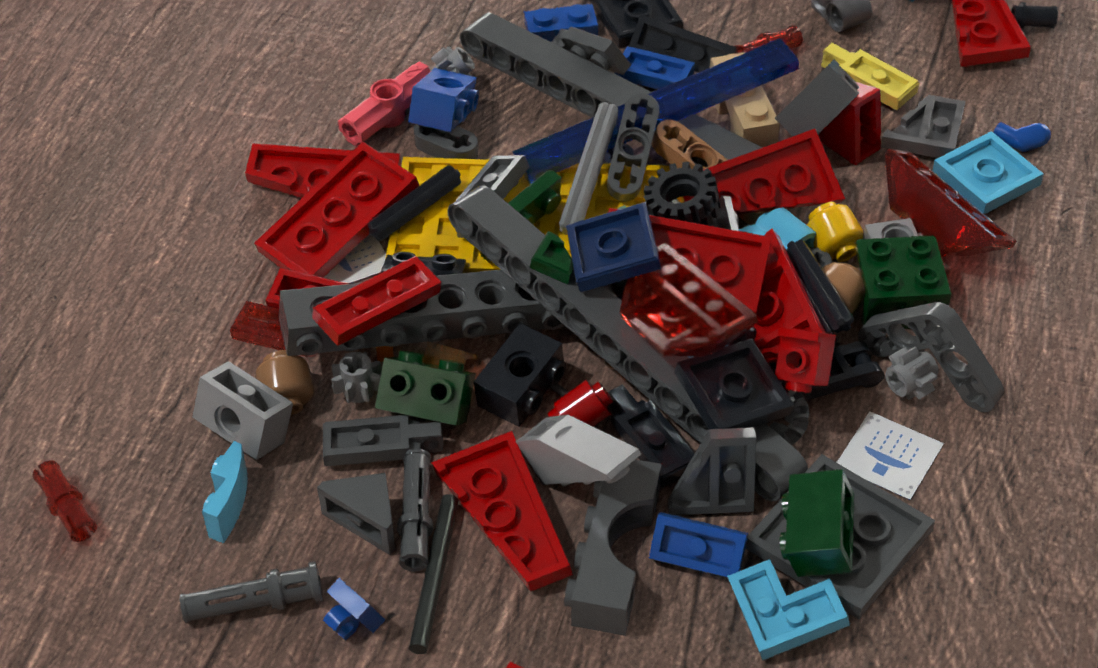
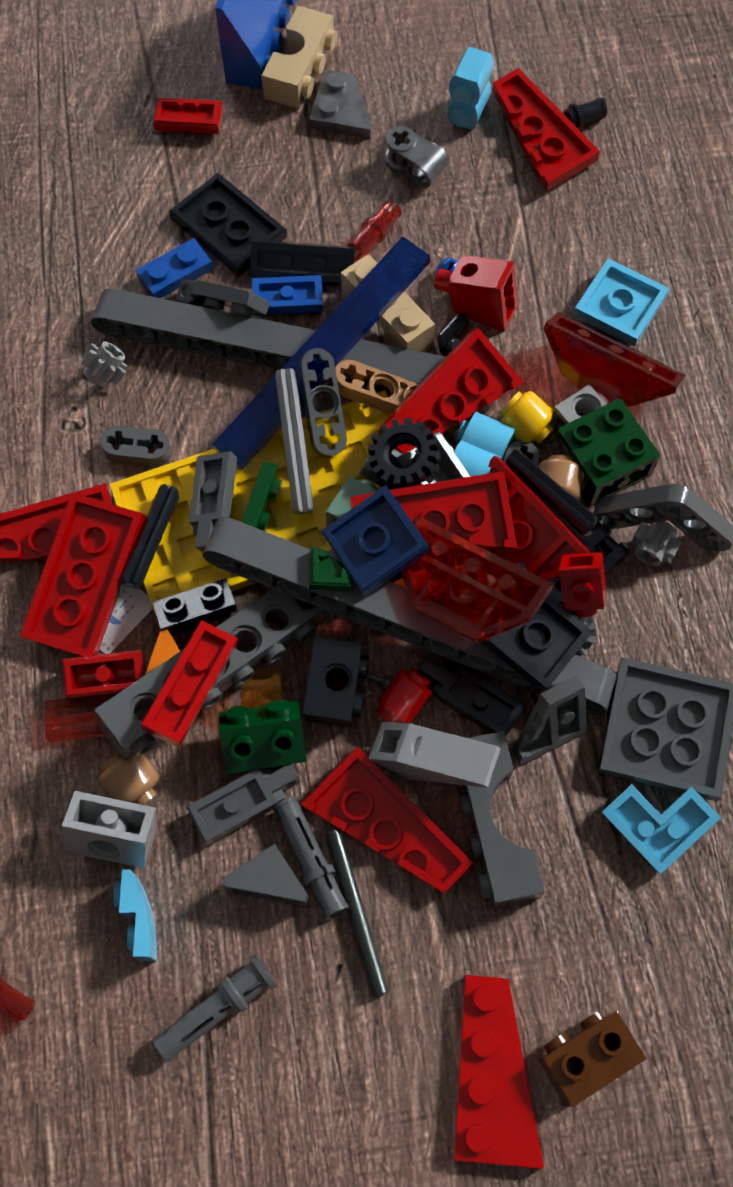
camera: 25 degrees left, 20 degrees up
(351, 610) = (311, 985): blue tile -> none
(356, 377) = (200, 748): light grey gear -> none
(384, 107) = (54, 443): coral piece -> none
(443, 99) = (118, 408): blue brick -> none
(698, 545) = (564, 791): blue plate -> none
(818, 523) = (662, 740): dark green brick -> none
(819, 101) = (463, 293): dark grey hinge -> none
(866, 69) = (477, 231): light yellow hinge -> none
(890, 455) = (666, 626): white sticker -> none
(928, 129) = (553, 272): flat silver wing -> none
(1024, 138) = (634, 252): blue arm -> none

